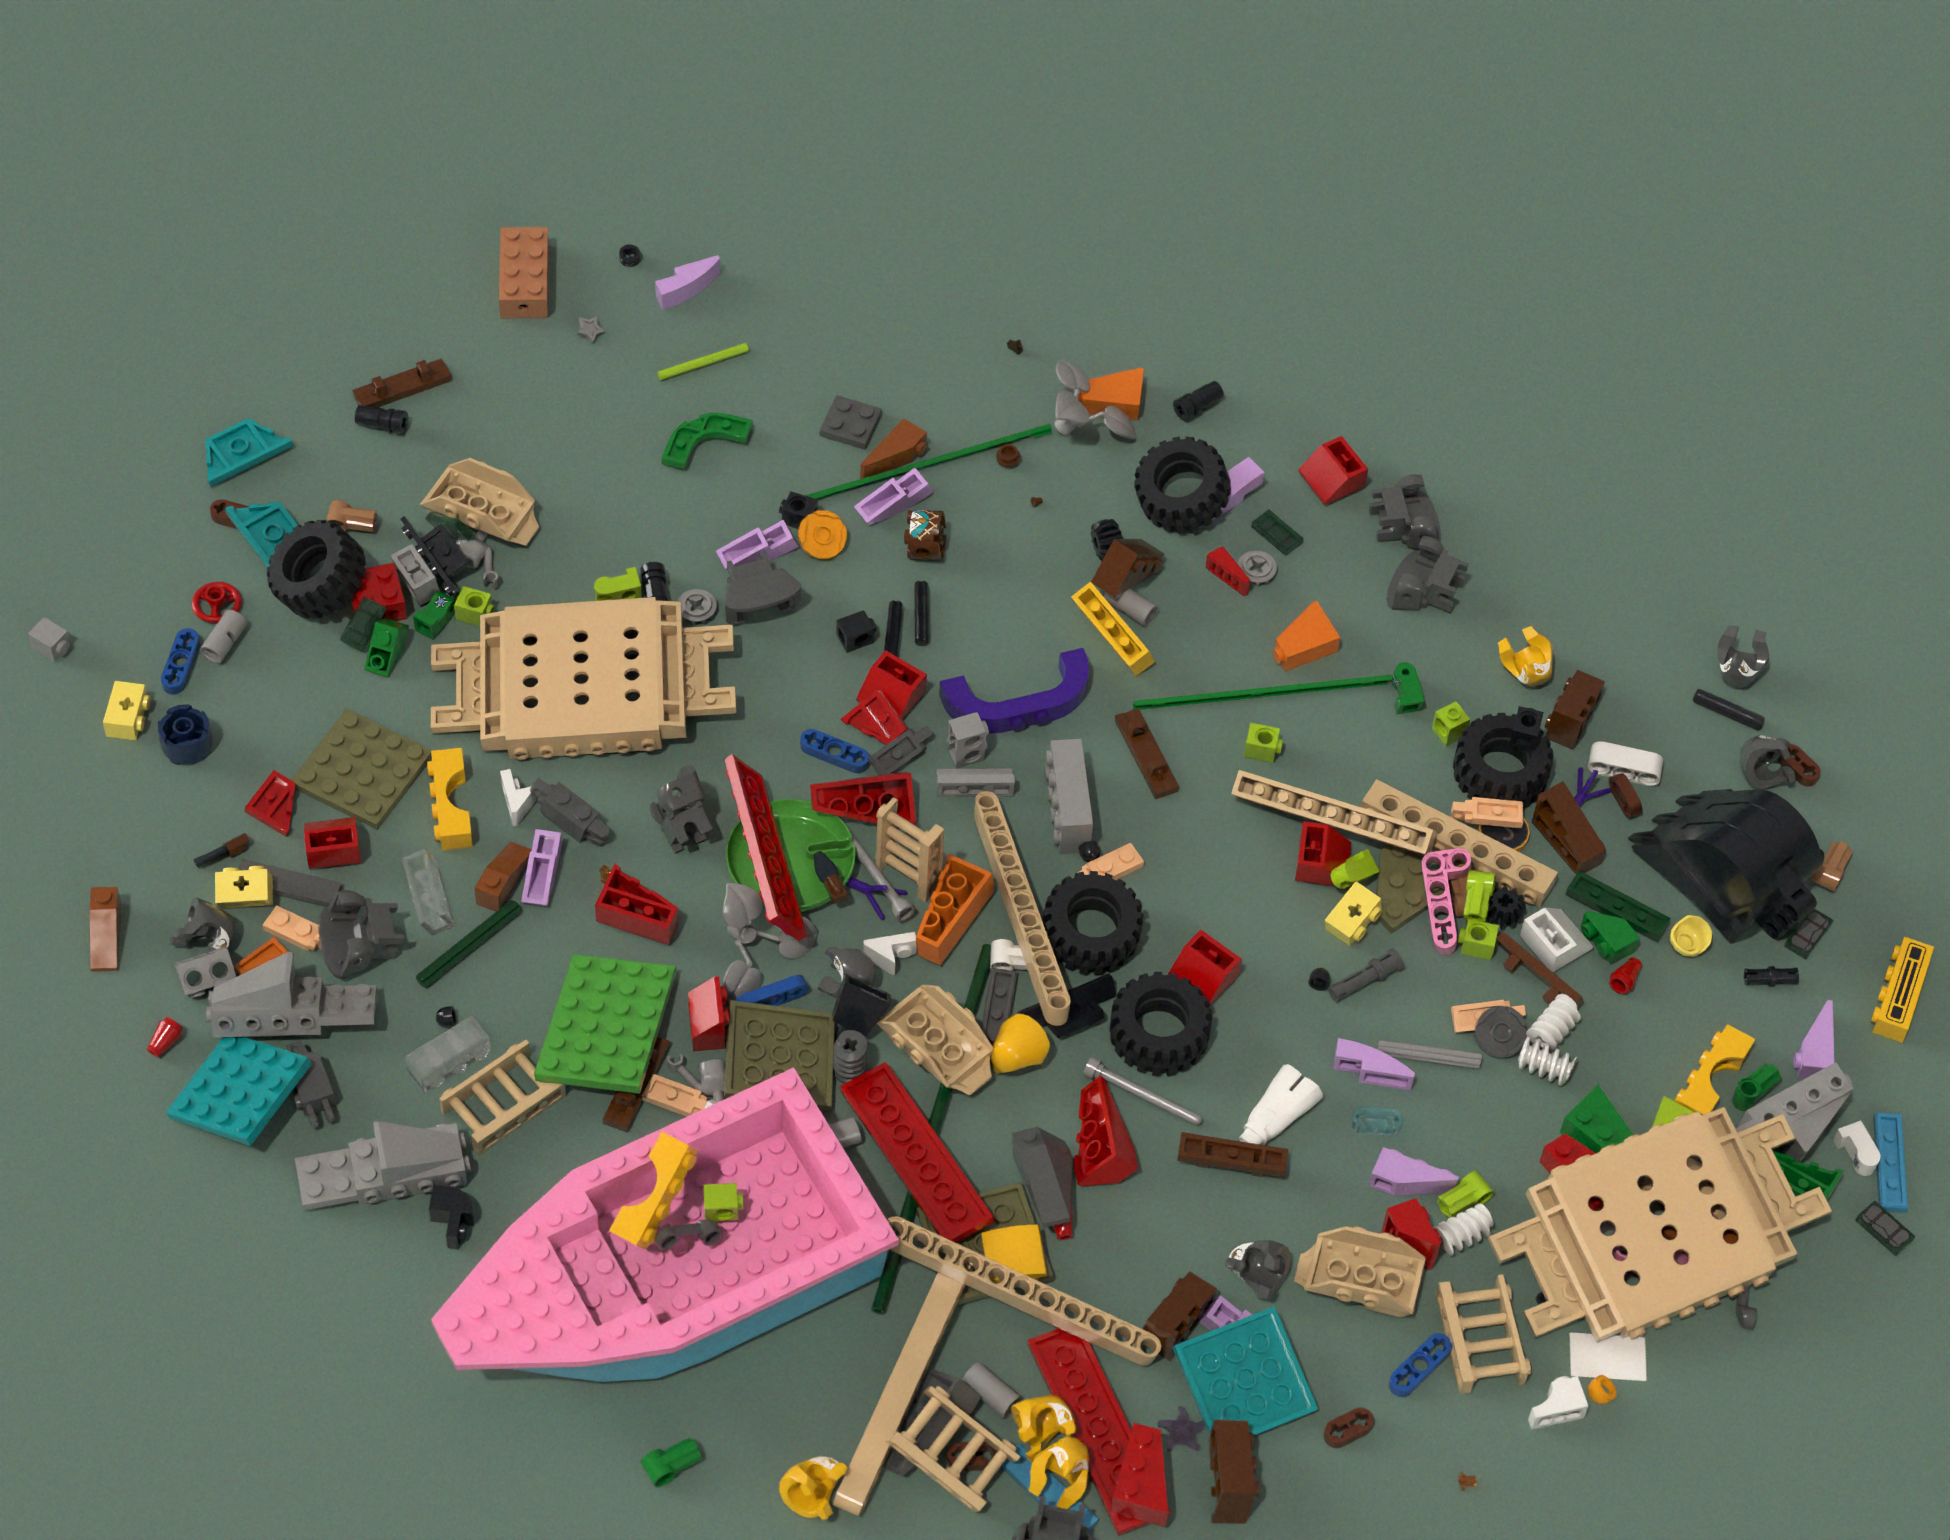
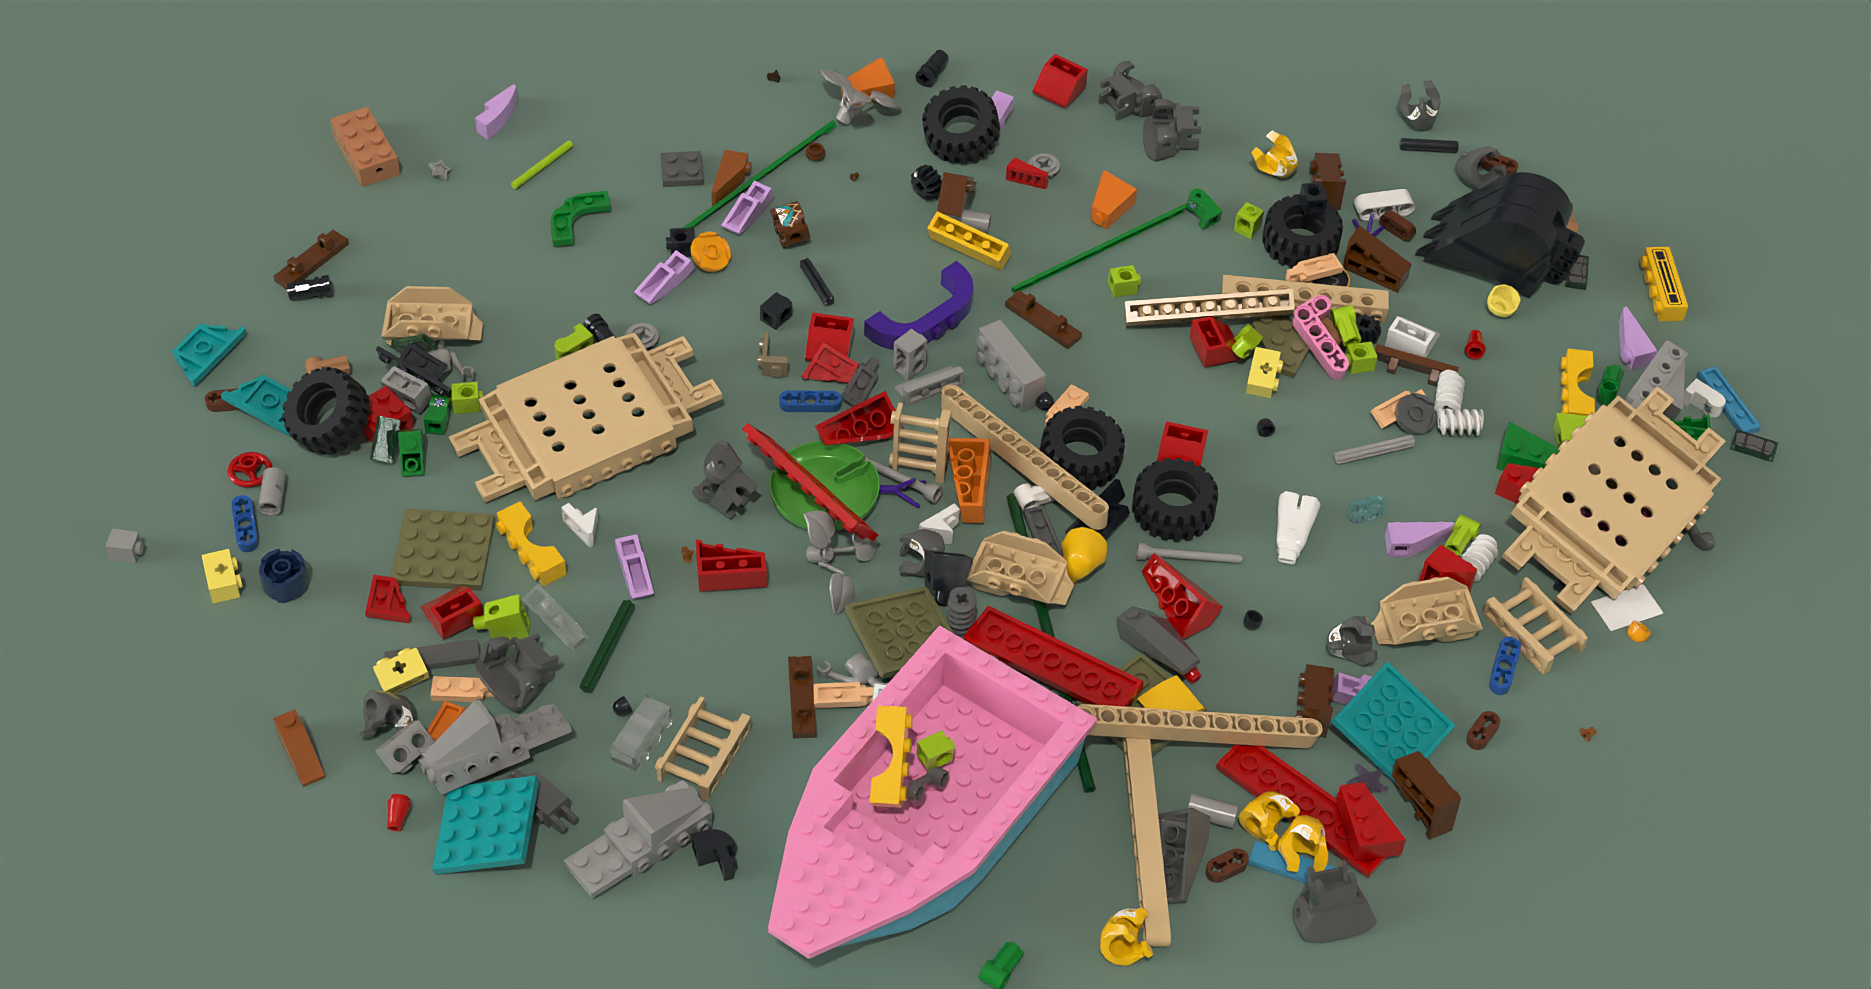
camera: 25 degrees left, 5 degrees down
(232, 848) = (369, 647): piece -> none
(378, 873) = (504, 618): none -> lime torso
(501, 876) = (605, 586): dark orange slope -> none
(570, 812) = (634, 517): dark grey hinge -> none
(605, 1023) = (756, 661): bright green plate -> none
(628, 250) = (436, 106): black bush -> none
(708, 1015) = (832, 623): red slope -> none
(758, 587) = (685, 304): dark grey piece -> none
(778, 992) = (875, 587): blue beam -> none
(815, 694) = (771, 365): none -> dark tan bracket
(830, 877) = (866, 488): piece -> none
(893, 627) = (801, 299): black axle -> none
(927, 1459) = (1202, 878): tan fence -> none
(1171, 1198) = (1252, 619): none -> black hinge
(1232, 1155) = (1283, 571): reddish brown hinge -> none
(1277, 532) = (1043, 138): clear green tile -> none
(1372, 1065) = (1340, 471): lavender slope -> none
(1376, 970) = (1300, 407): dark grey pin -> none
(1564, 1404) = (1621, 649): white arch -> none
(1611, 936) = (1448, 321): green slope -> none
(1616, 904) = (1439, 300): dark green plate -> none
(1771, 976) = (1571, 308): black pin -> none

